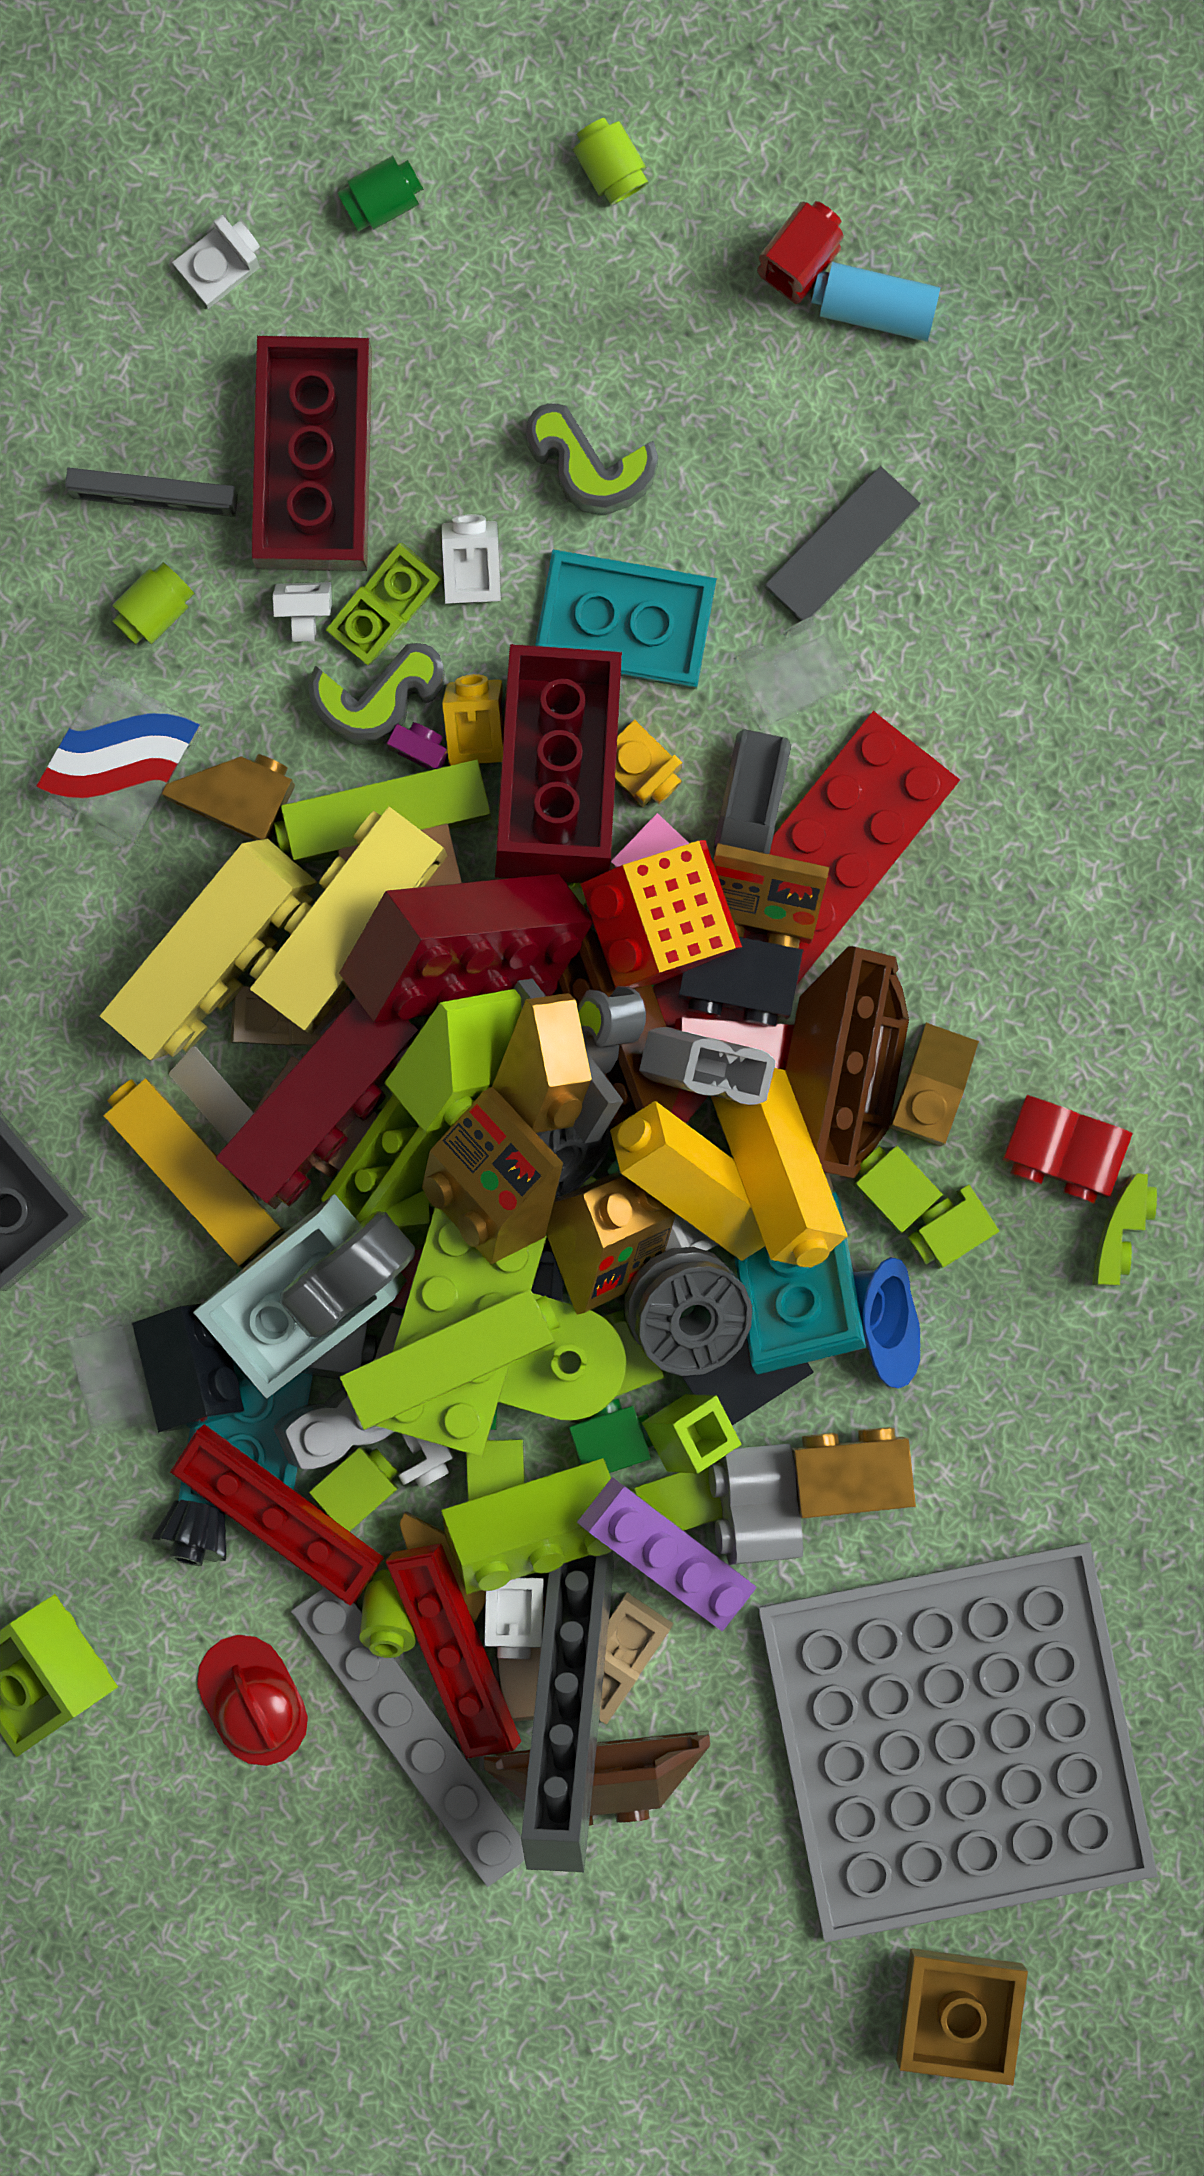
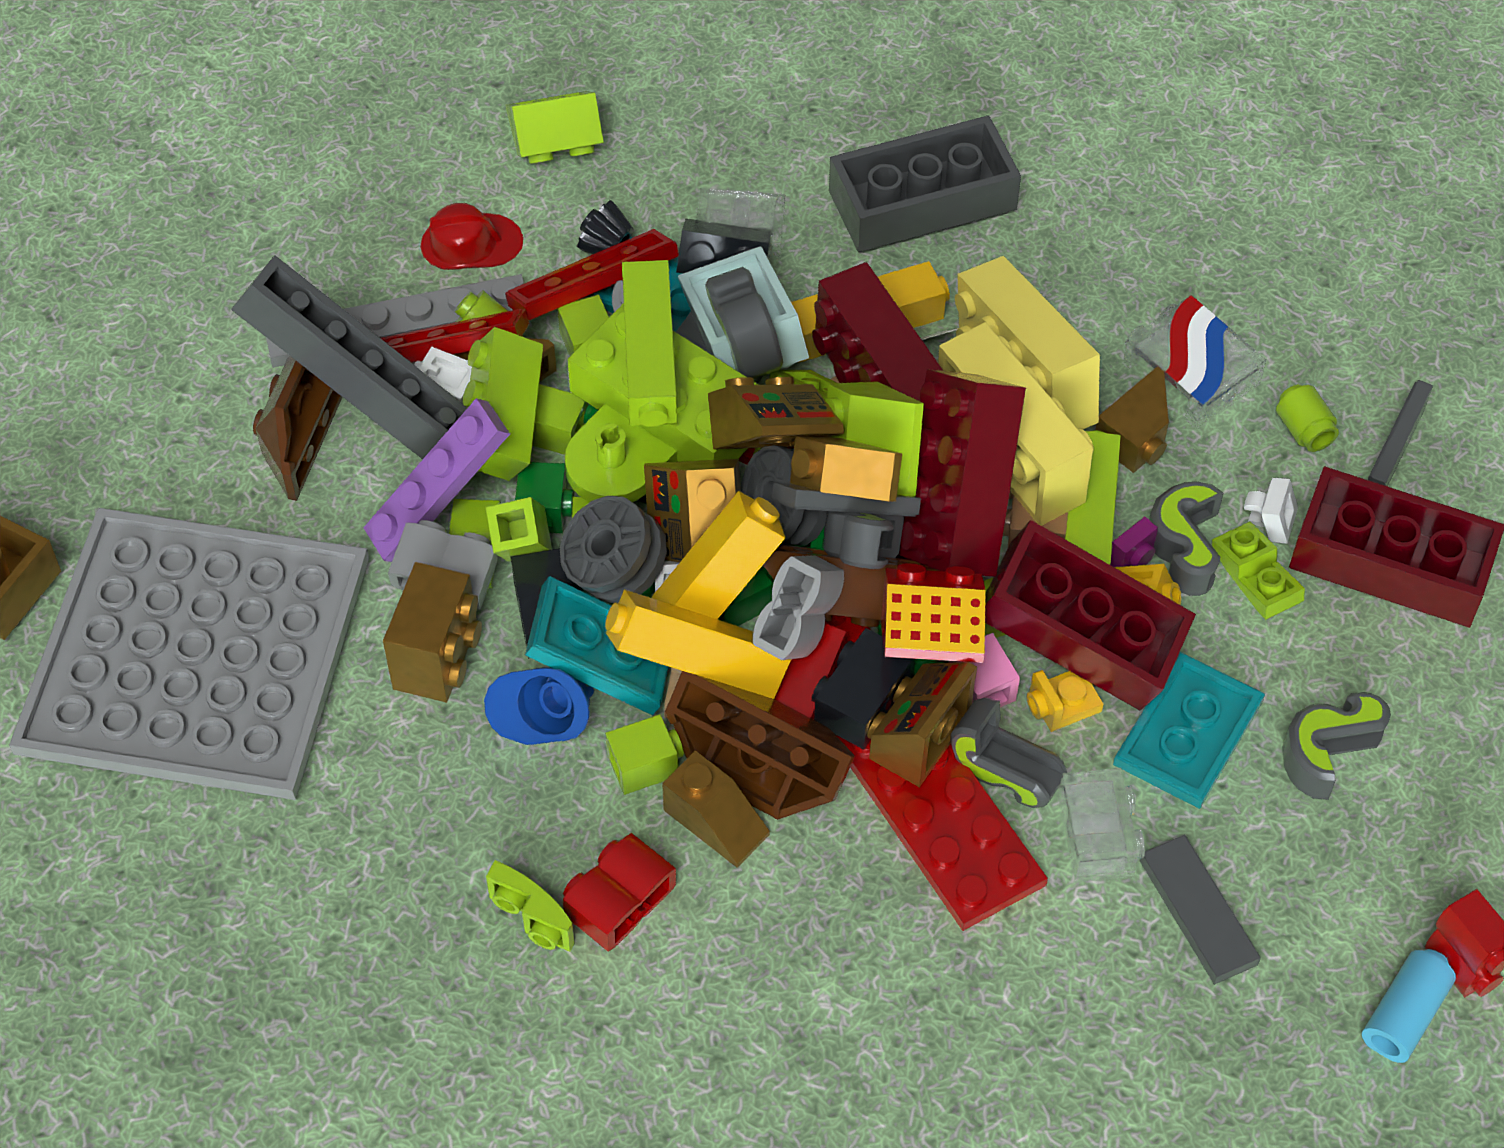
camera: 110 degrees right, 30 degrees down
(471, 560) = (1275, 631): white bracket -> none
(631, 1641) = (377, 455): tan slope -> none
(953, 1229) = (592, 785): lime brick -> none

